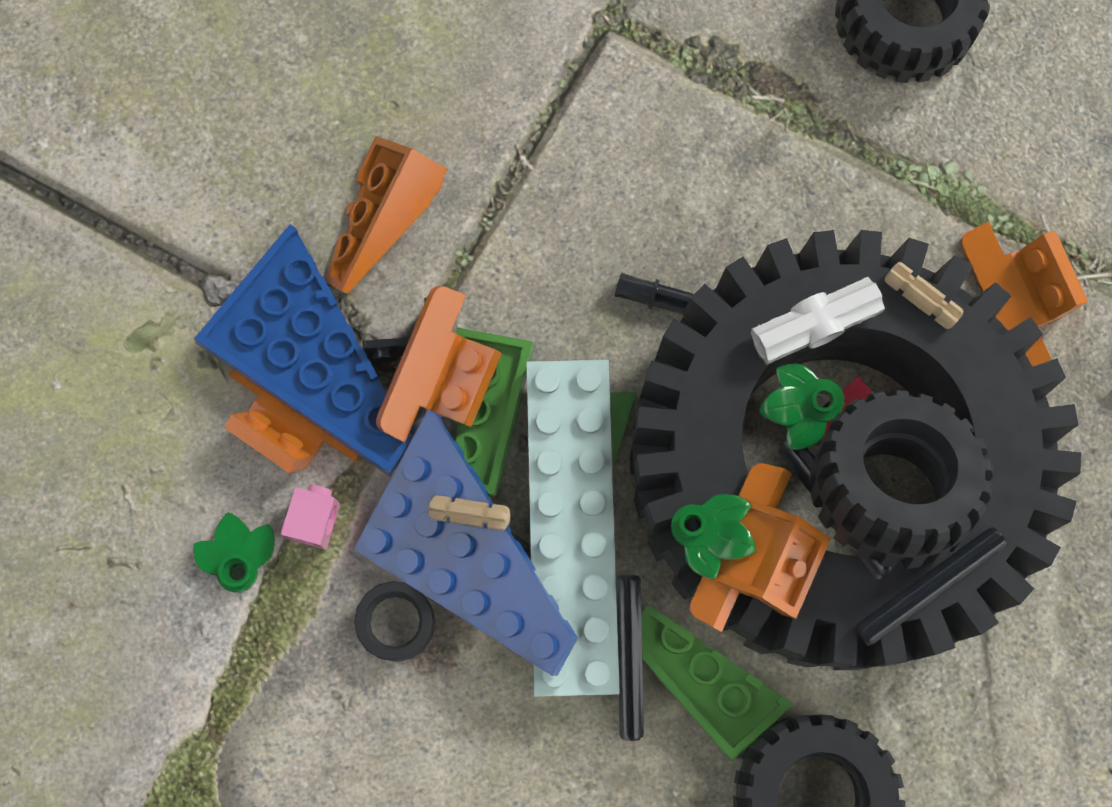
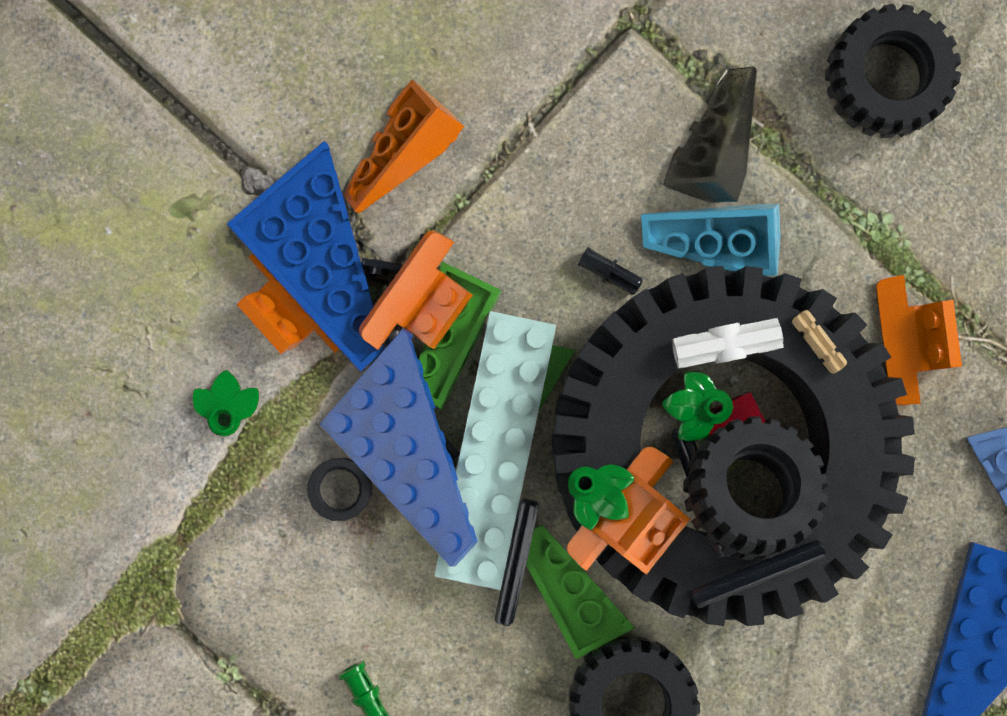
camera: 15 degrees right, 10 degrees up
(311, 516) = (291, 390): bright pink brick -> none
(469, 513) = (415, 424): tan axle -> none
(741, 132) = (717, 151): none -> clear smoke wedge
(761, 220) = (718, 236): none -> medium azure wedge

